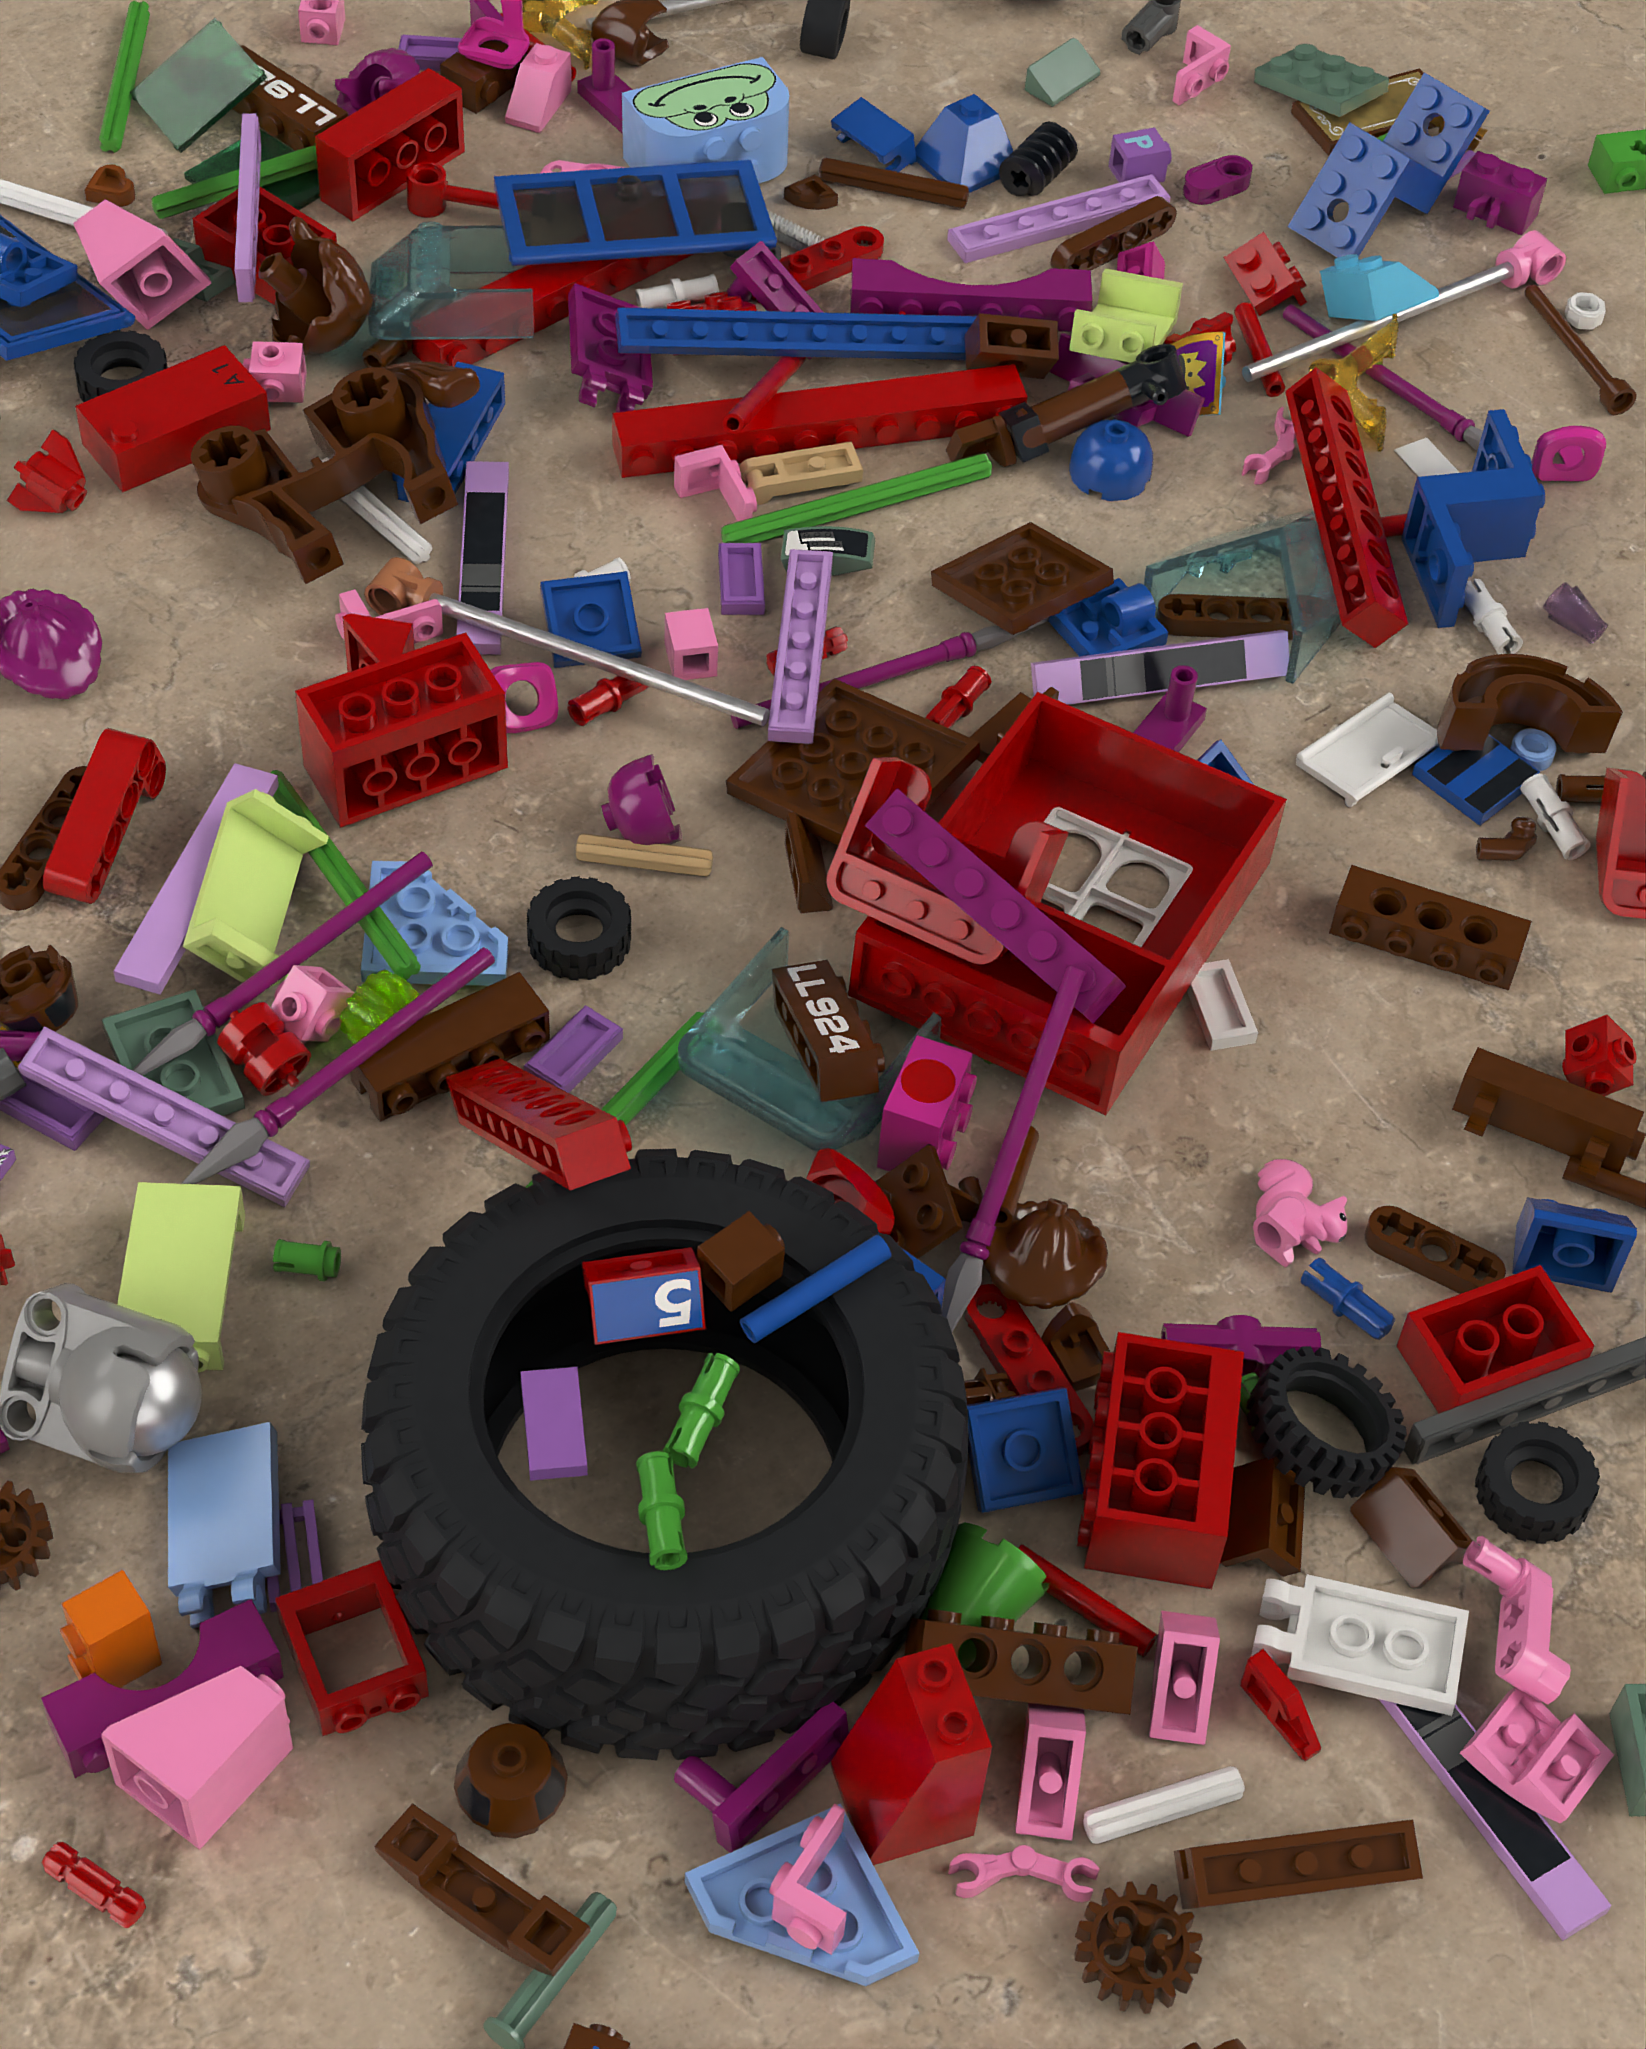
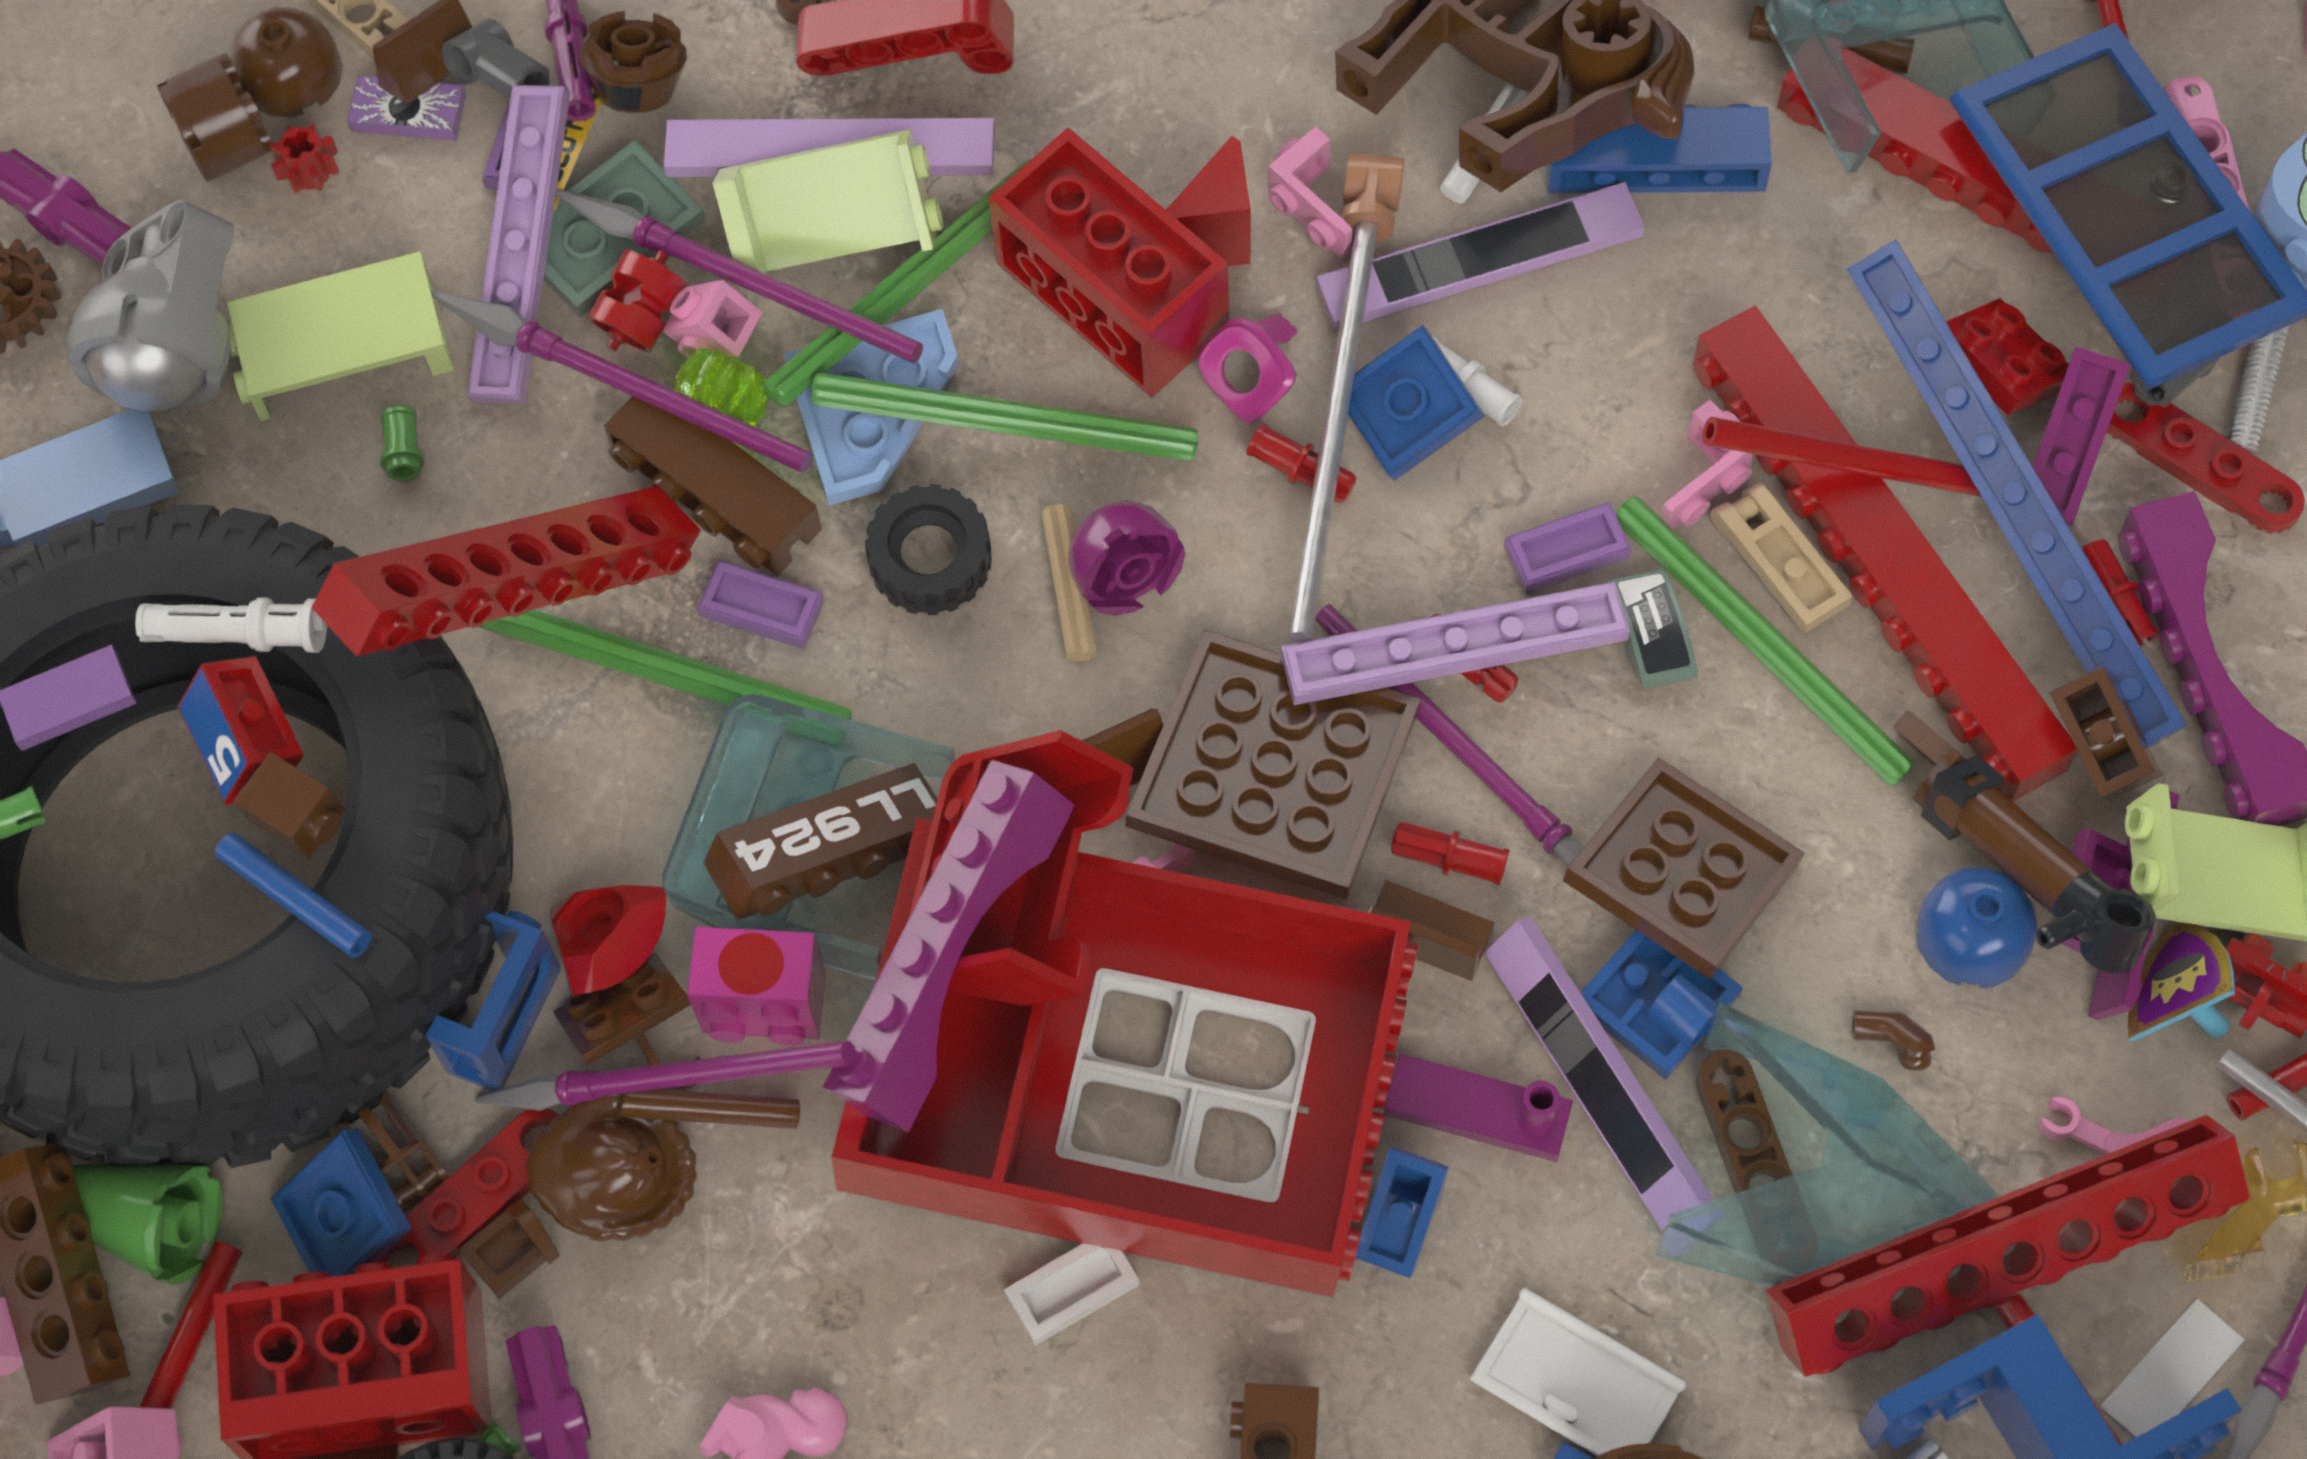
camera: 80 degrees right, 15 degrees up
(488, 848) = (1004, 416): none -> bright green axle
(554, 1251) = (258, 624): none -> white pin
(596, 351) = (1936, 234): magenta tile -> none
(677, 290) = (2046, 309): white pin -> none
(691, 644) = (1415, 523): bright pink brick -> none
(701, 1409) = (109, 828): bright green pin -> none
(1170, 520) = (1898, 1029): none -> reddish brown arm

